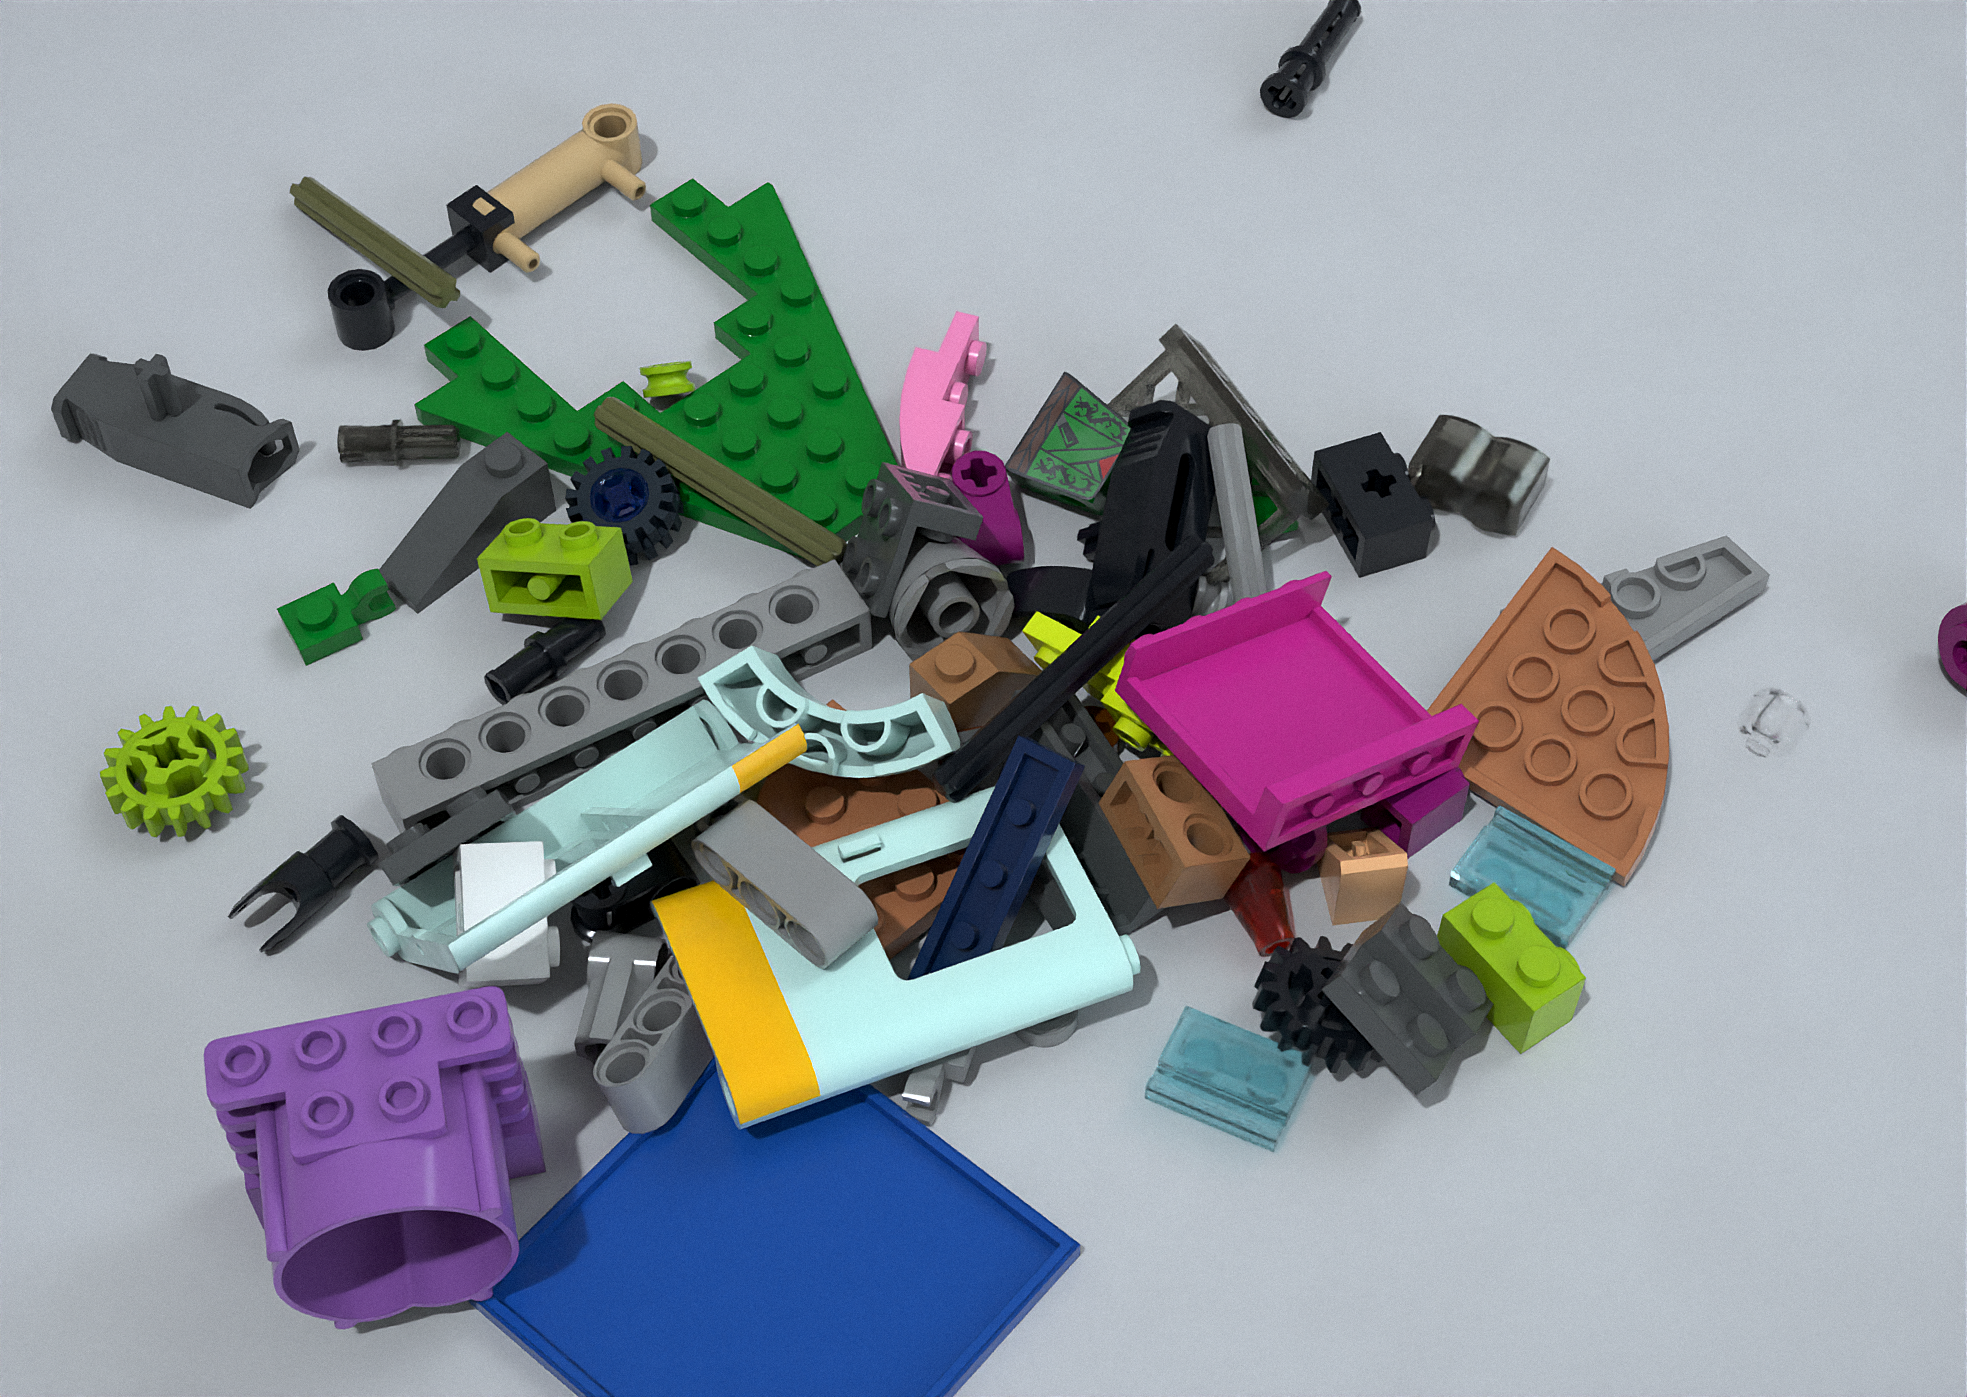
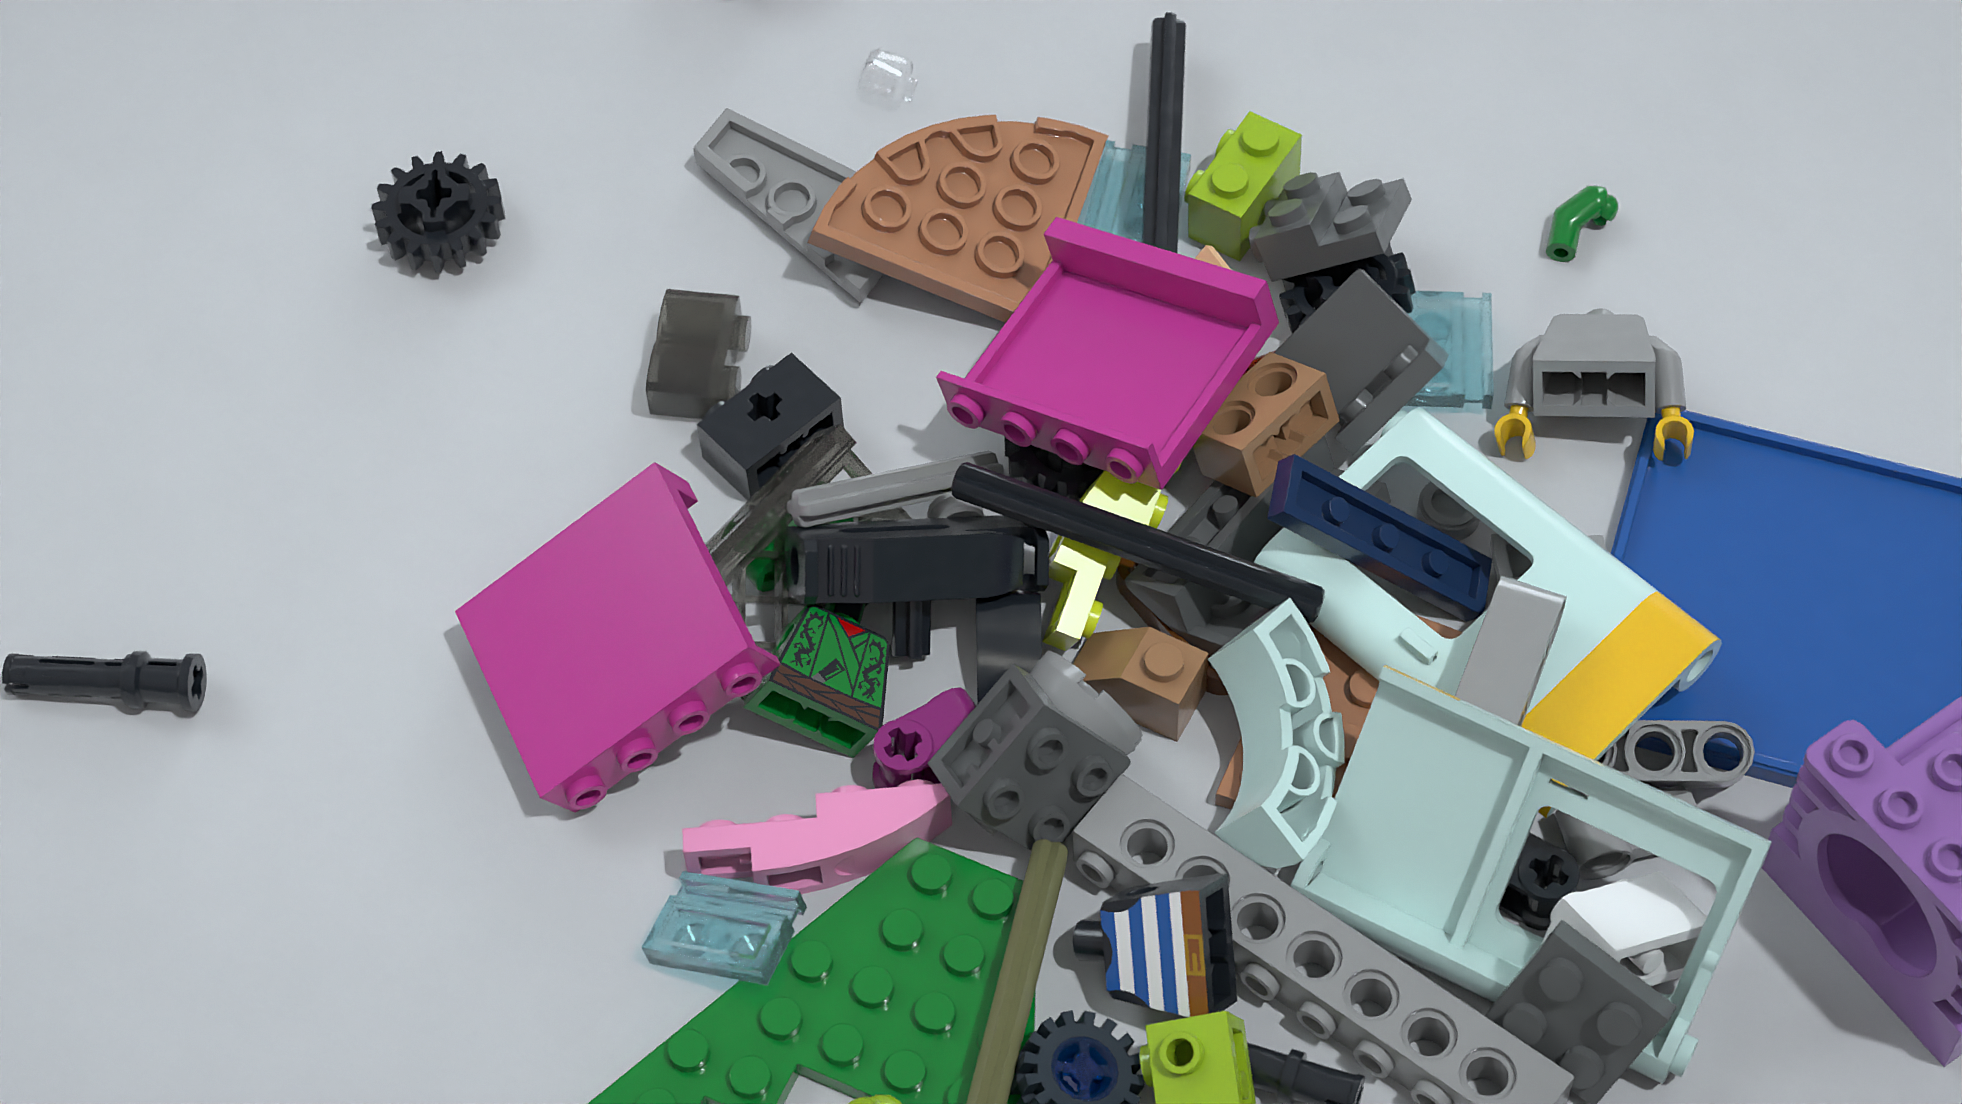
camera: 110 degrees left, 5 degrees up
(715, 575) = (1166, 945): none -> torso
(882, 334) = (724, 928): none -> clear light blue plate
(1120, 1185) = (1596, 369): none -> light grey torso
(1170, 295) = (612, 641): none -> dark pink panel
(1220, 965) = (1369, 353): none -> dark grey bracket
(1358, 1283) = (1588, 204): none -> green arm
(1572, 896) = (1164, 133): none -> black axle
(1717, 343) = (438, 211): none -> black gear

